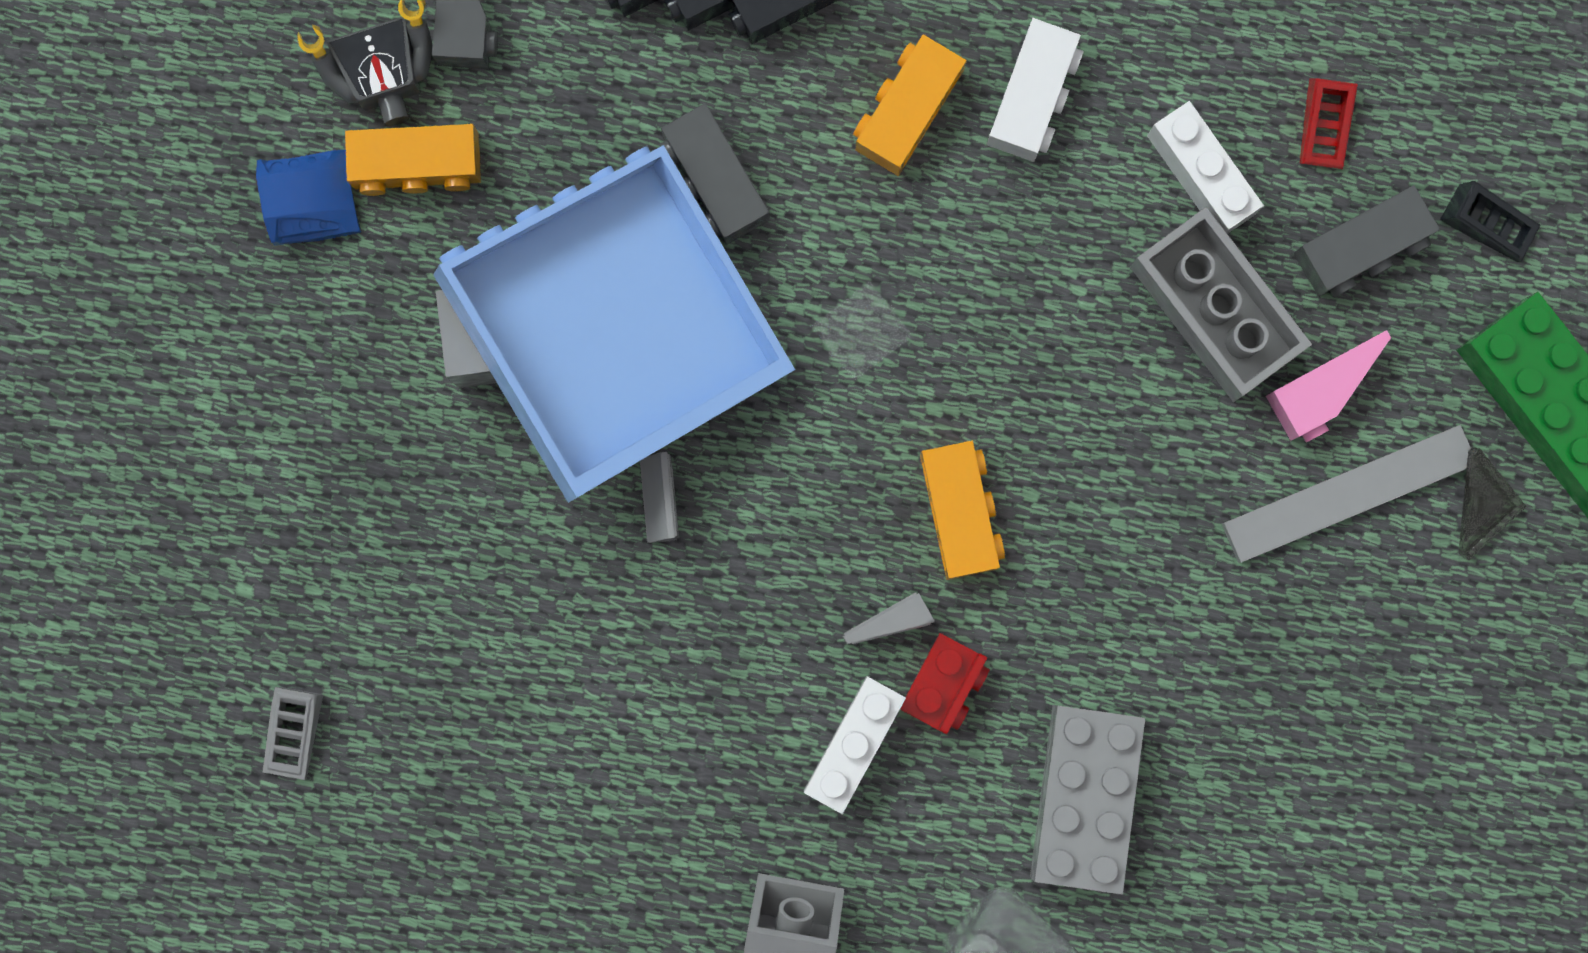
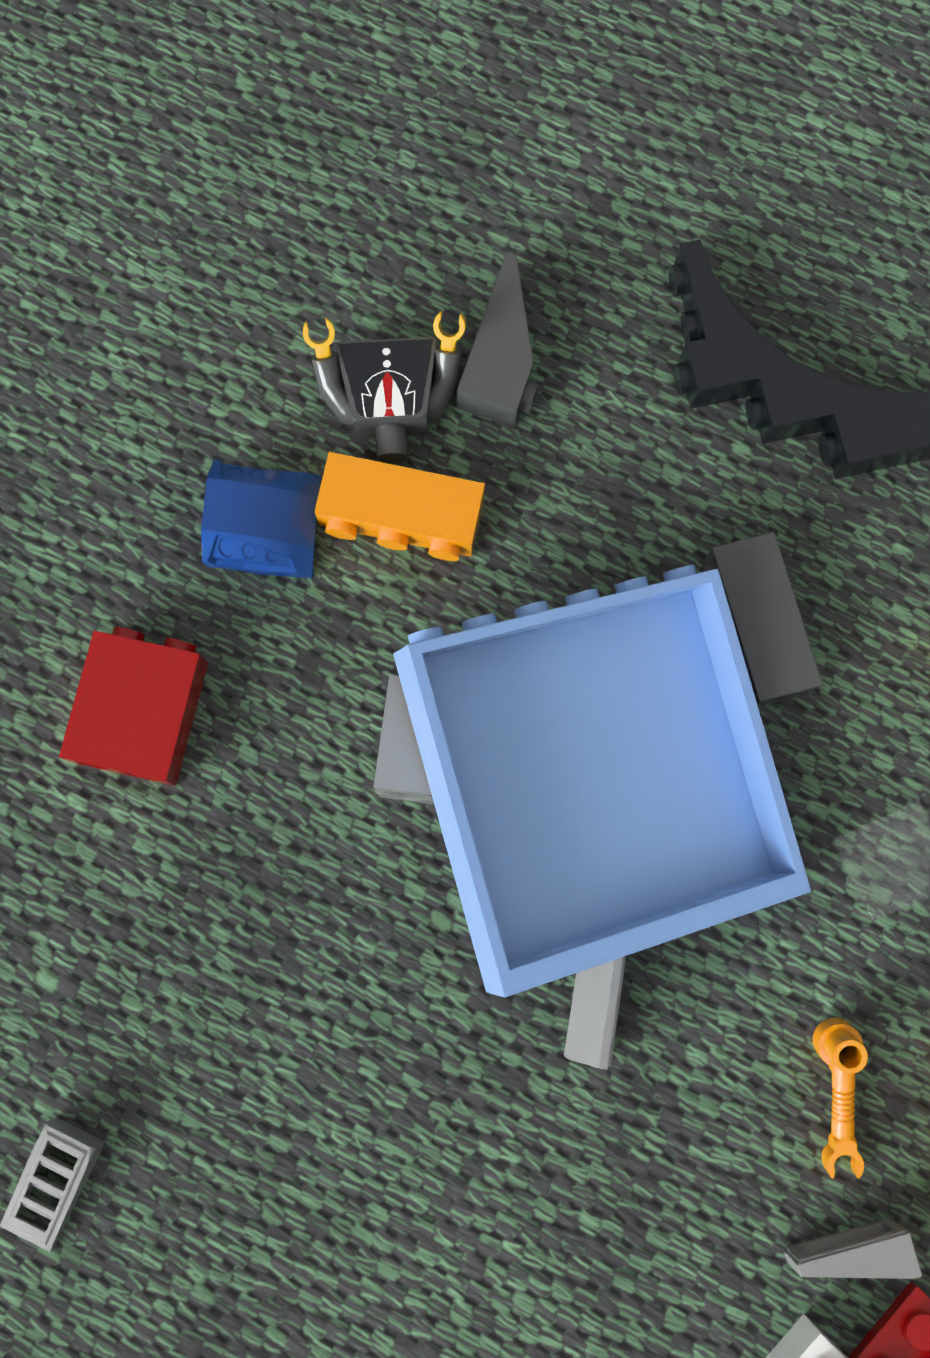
camera: 10 degrees right, 5 degrees down
(251, 367) = (135, 705): none -> red brick
(855, 509) = (828, 1041): none -> light orange brick

